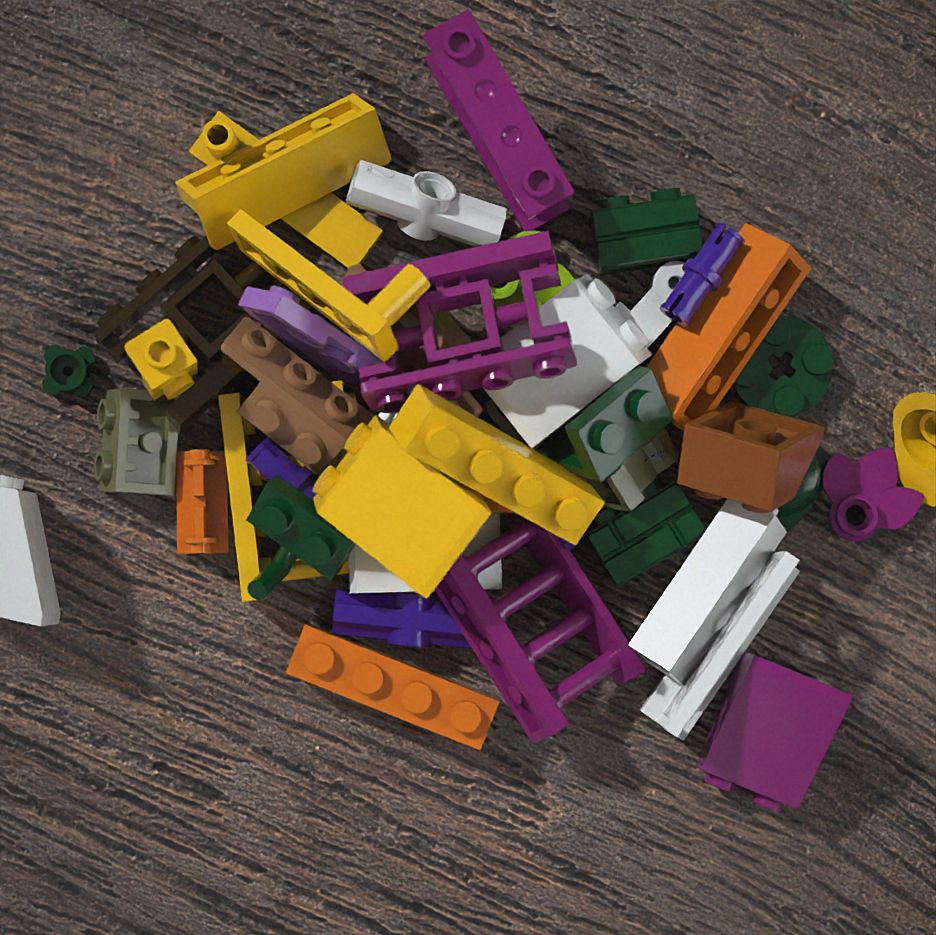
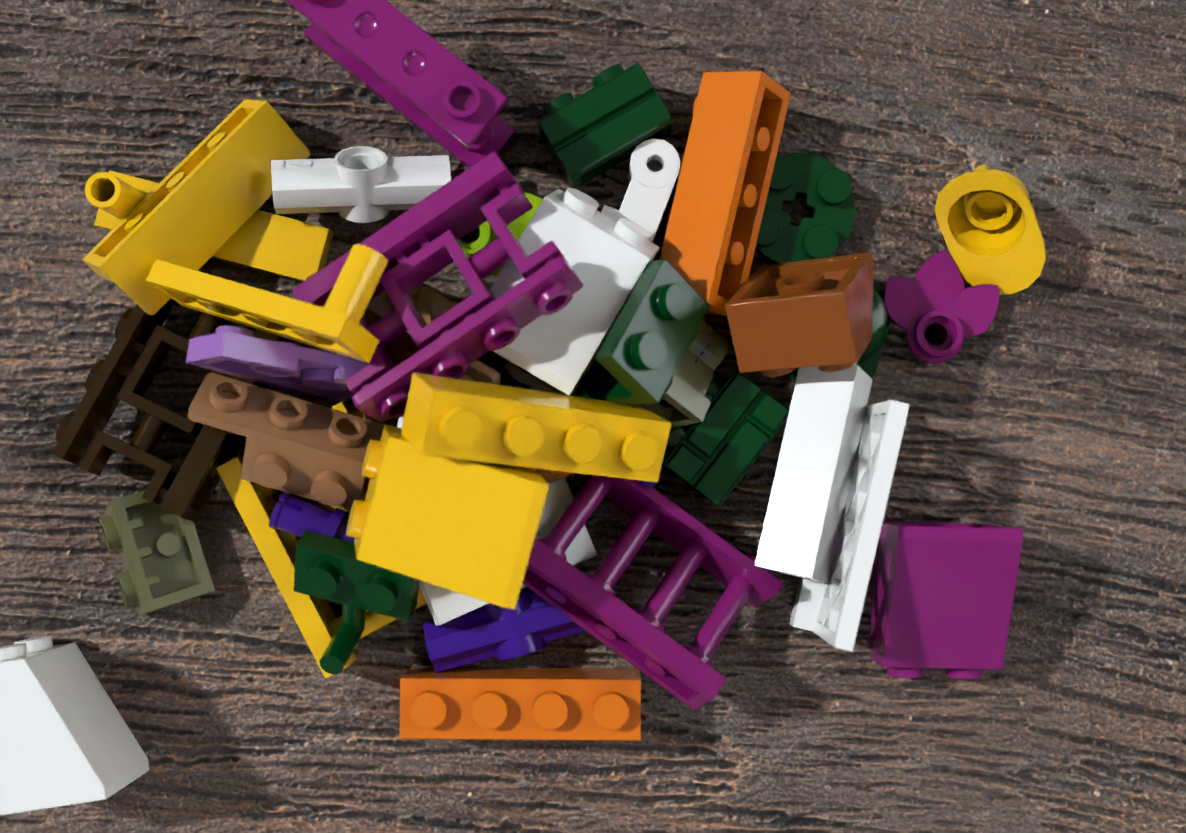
camera: 15 degrees left, 0 degrees up
(58, 360) = (40, 506): dark green plate -> none
(163, 360) = (129, 456): yellow bracket -> none
(202, 502) = (247, 588): orange hinge -> none
(702, 274) = (679, 141): dark purple pin -> none

